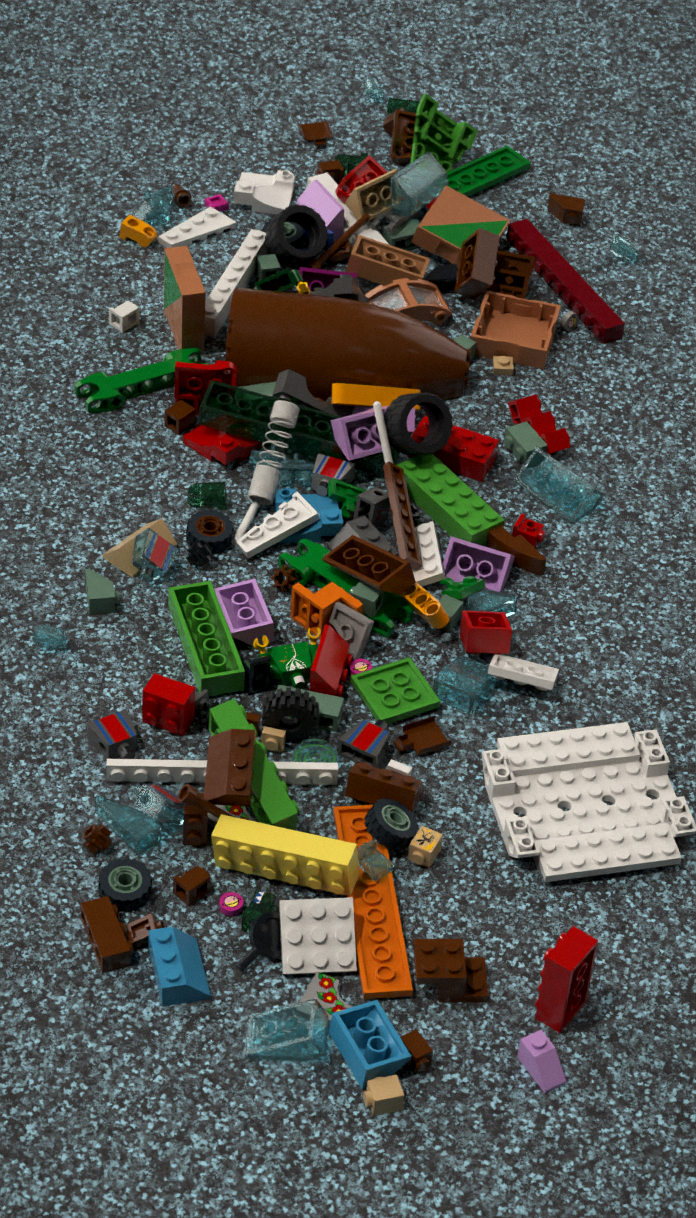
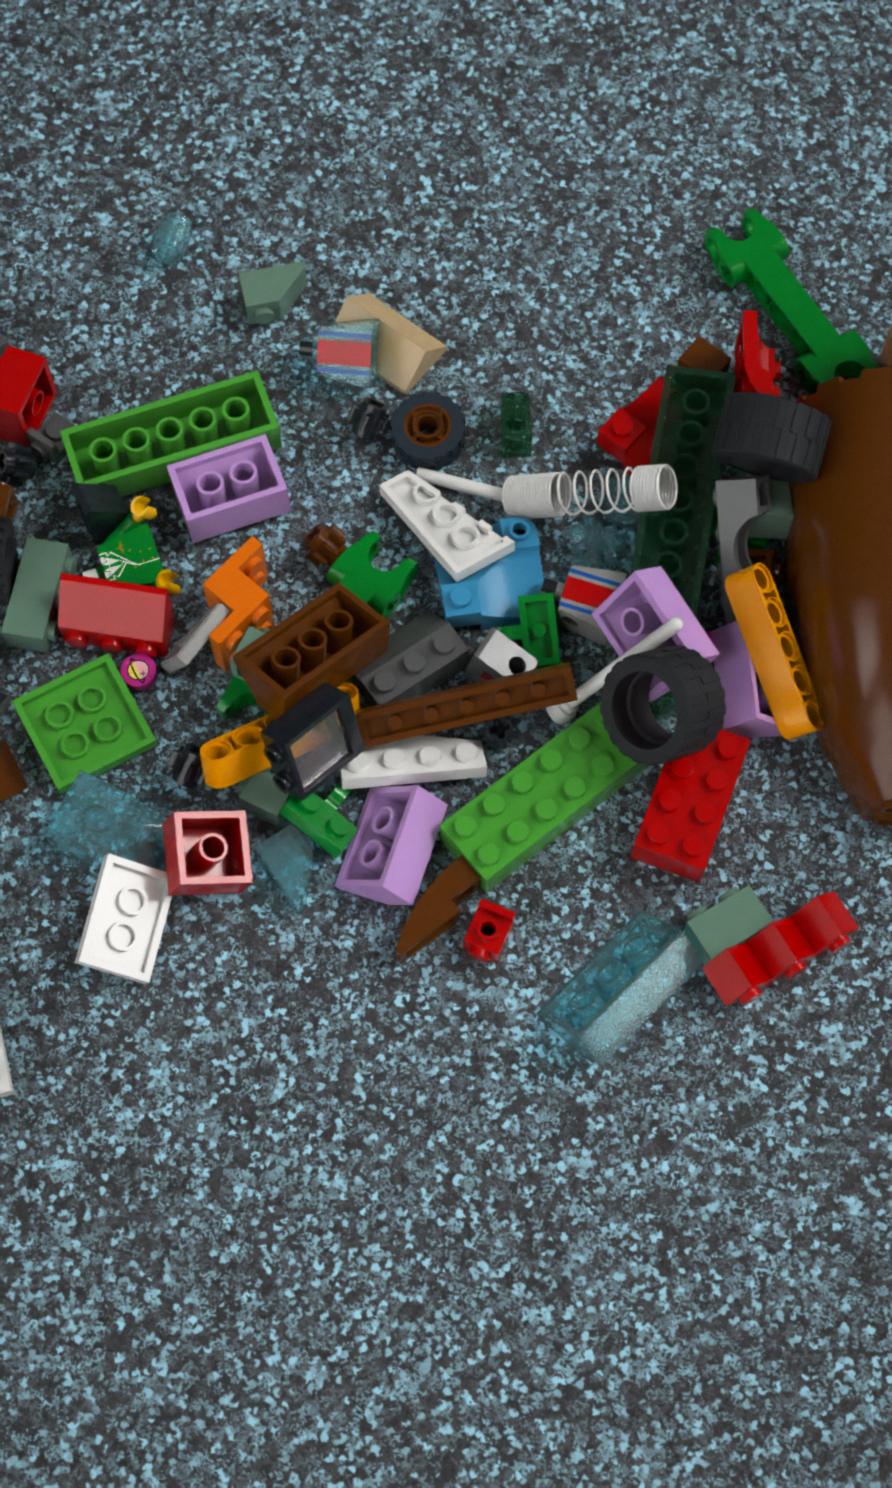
camera: 90 degrees right, 25 degrees up
(264, 360) = (771, 437): none -> black tyre
(426, 642) = (187, 765): none -> black gear
(429, 570) = (312, 741): none -> black window

